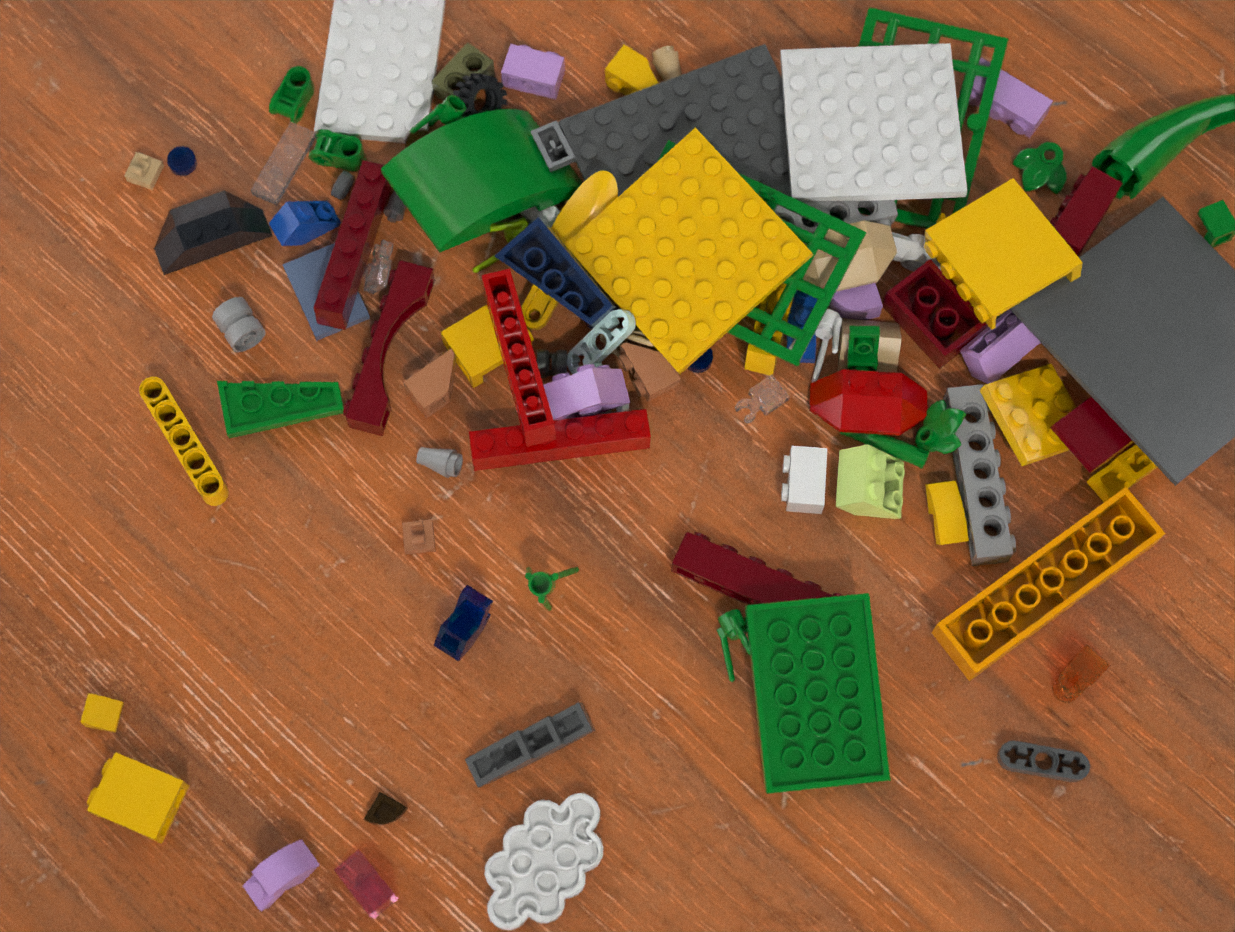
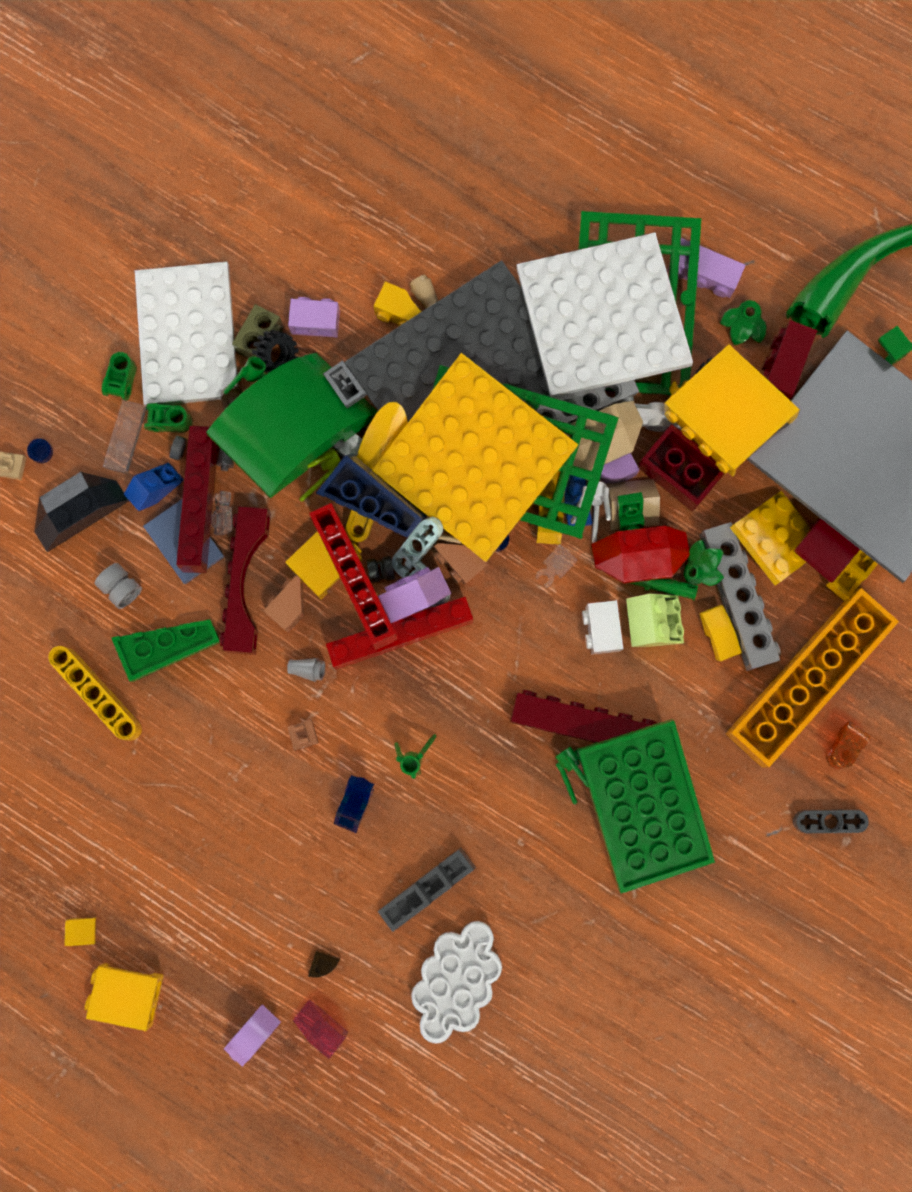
camera: 10 degrees left, 10 degrees up
(998, 349) = (735, 493): lavender brick -> none

